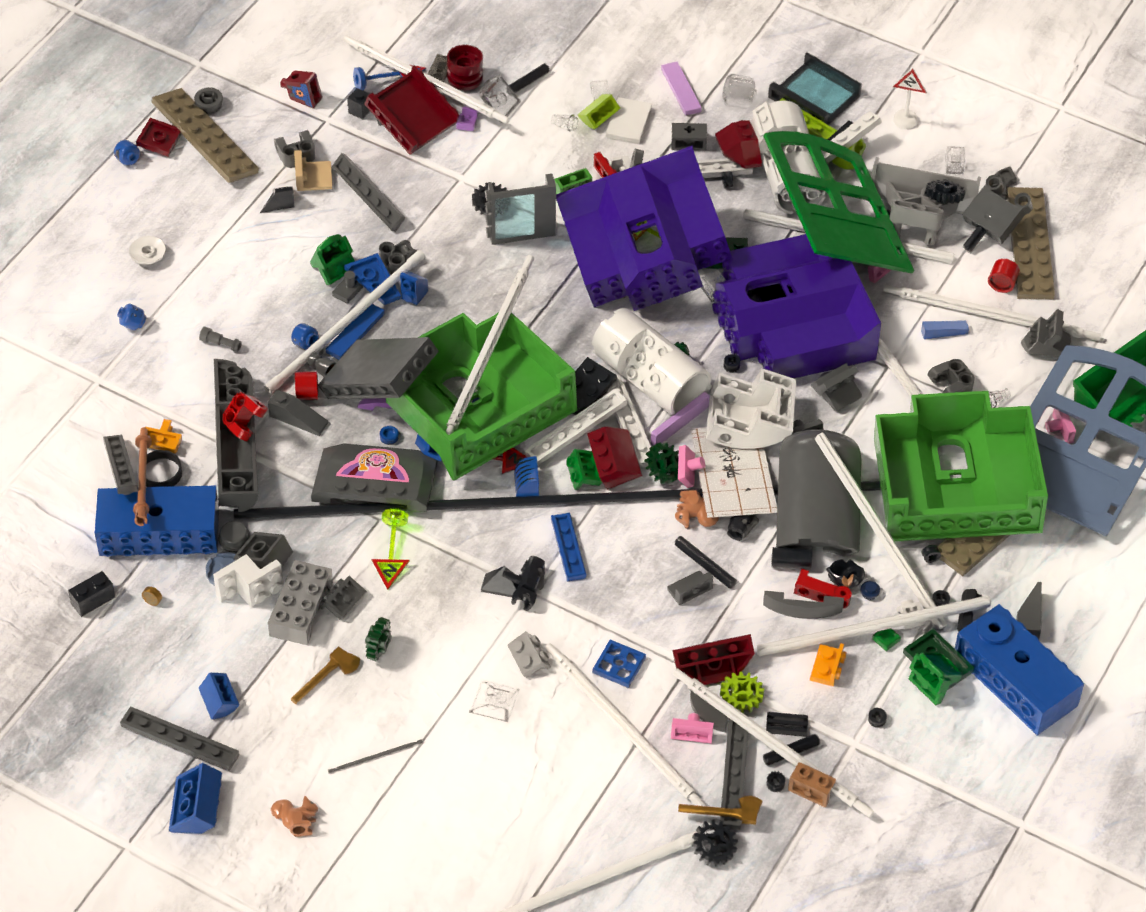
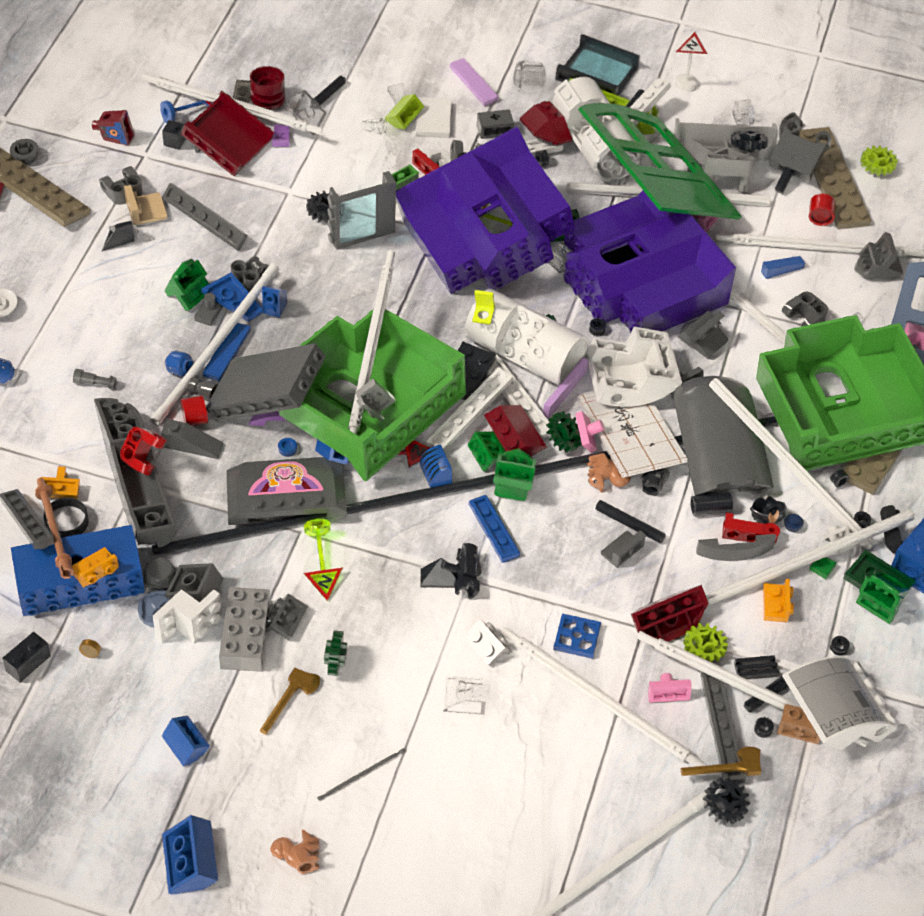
camera: 15 degrees left, 0 degrees up
(170, 519) = (95, 567): none -> light orange bracket
(179, 738) = (156, 792): dark grey plate -> none
(477, 401) = (374, 399): none -> light grey bracket
(599, 497) = (514, 474): none -> green piece
(612, 322) = (484, 302): none -> neon yellow bracket
(708, 712) = (676, 668): dark grey tile -> none
(853, 768) = (840, 701): none -> light grey slope
(1084, 231) = (879, 160): none -> lime gear

